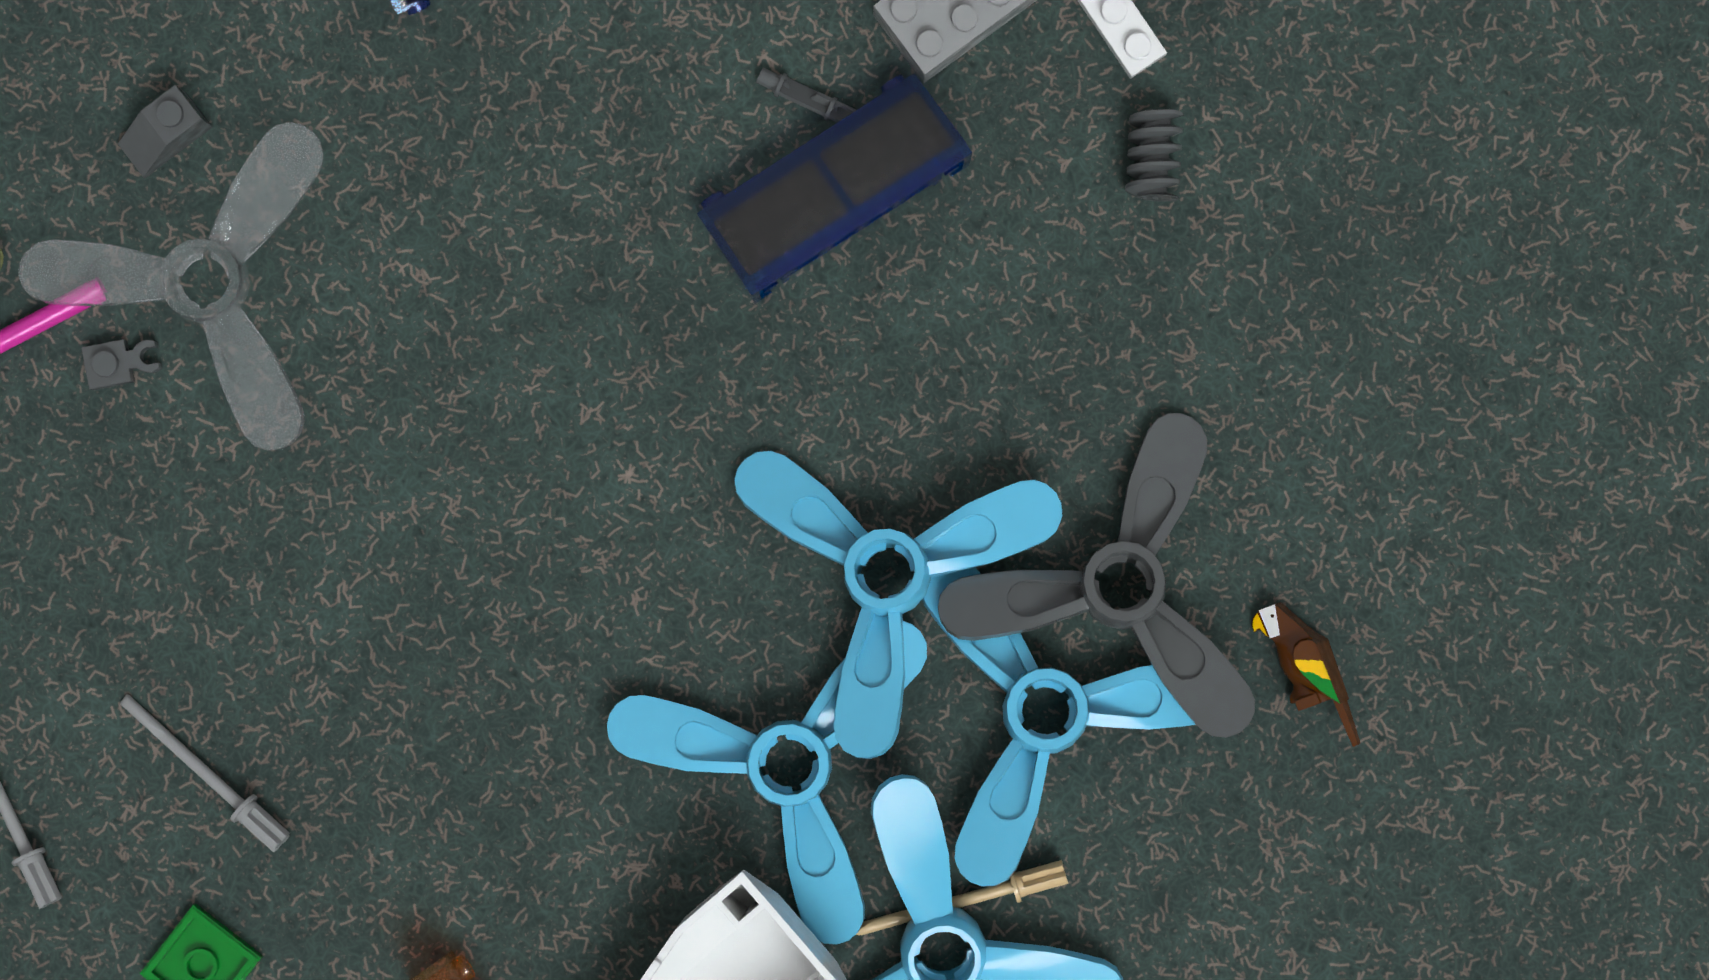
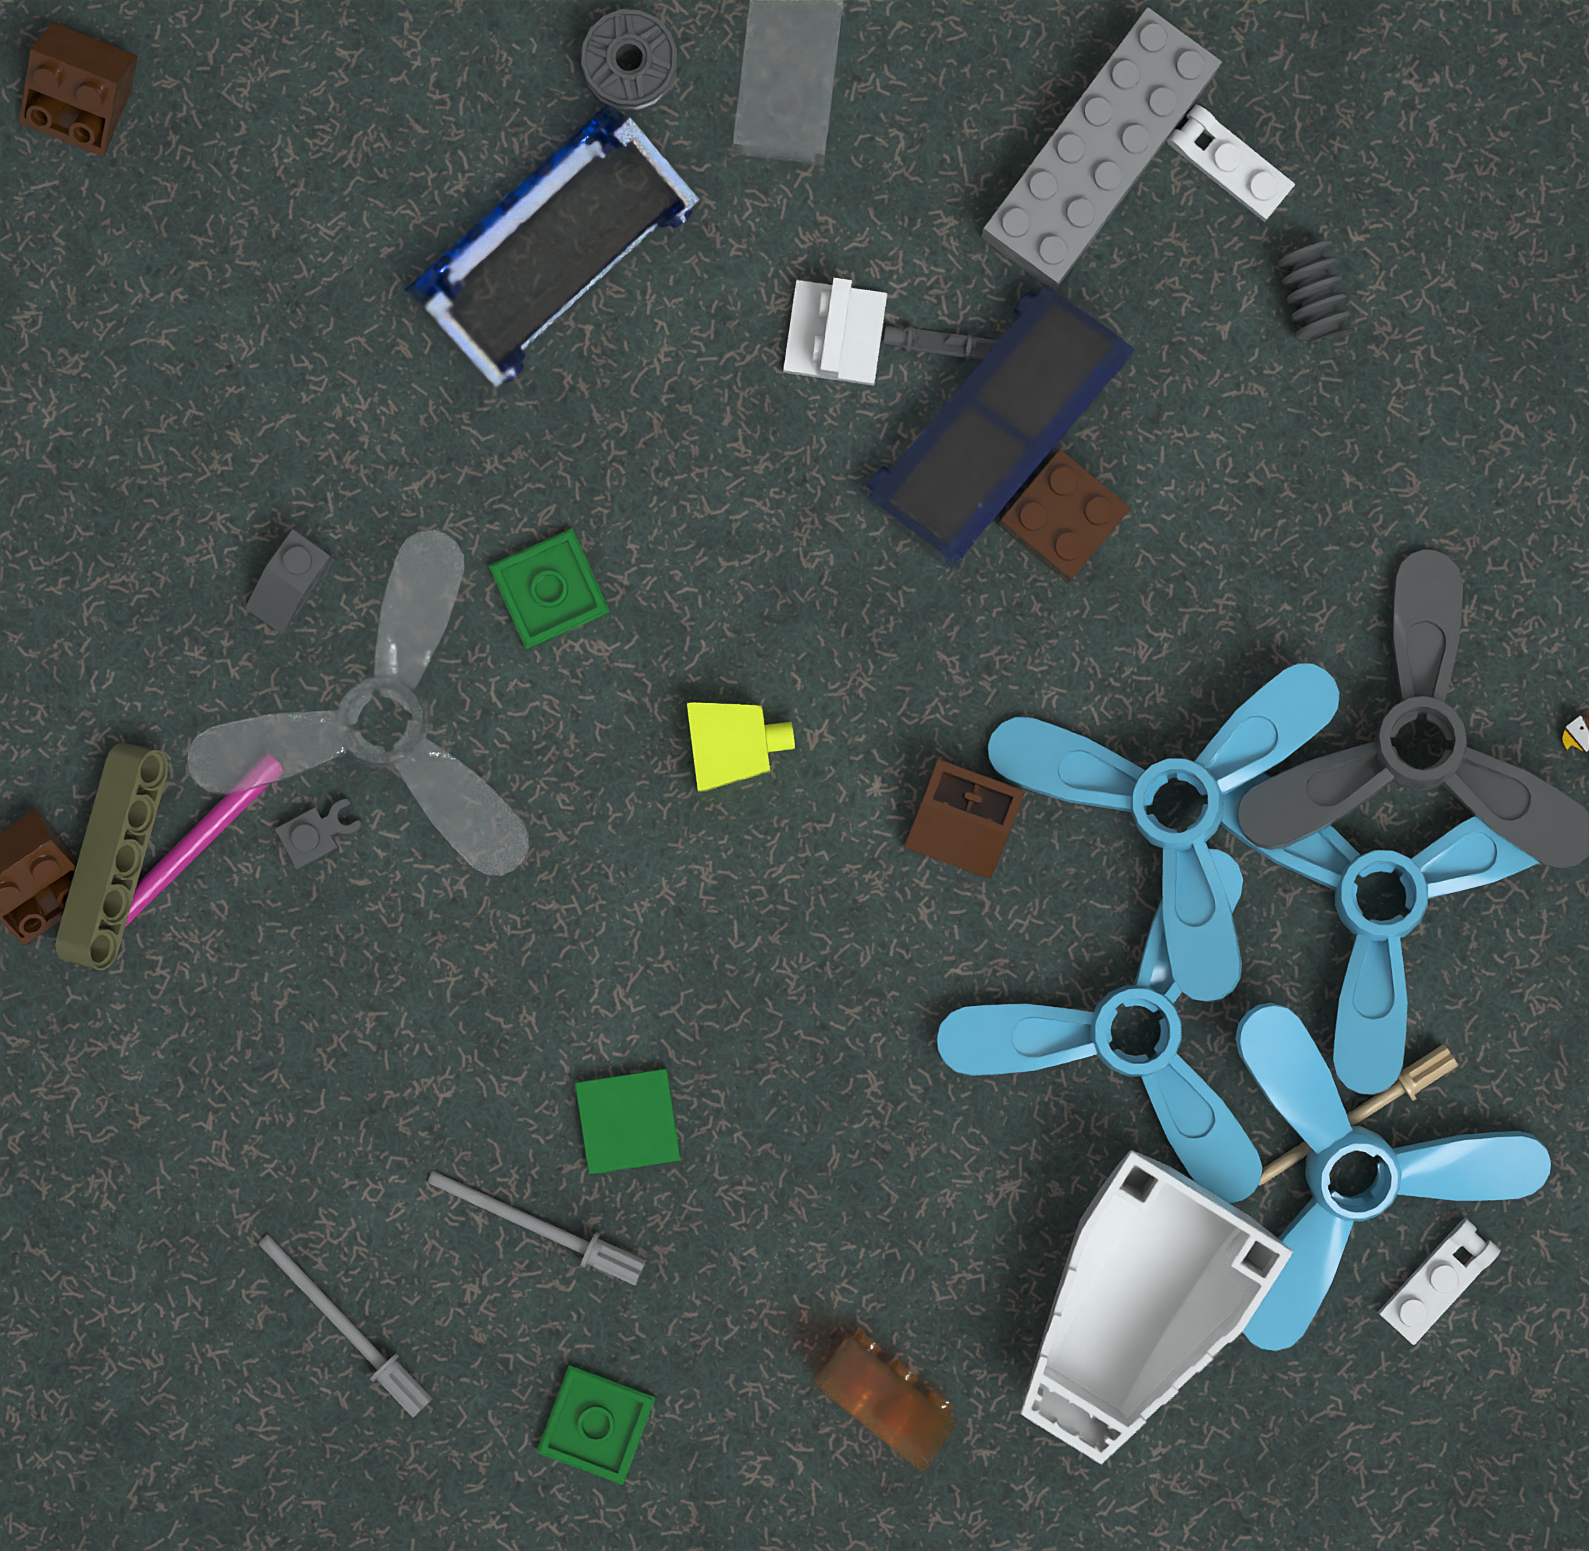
camera: 25 degrees left, 0 degrees up
(313, 704) = (627, 1121): none -> green tile
(392, 209) = (549, 589): none -> green tile
(510, 396) = (733, 742): none -> neon yellow torso
(694, 527) = (964, 819): none -> reddish brown slope
(717, 59) = (835, 331): none -> white bracket
(867, 284) = (1064, 516): none -> reddish brown brick

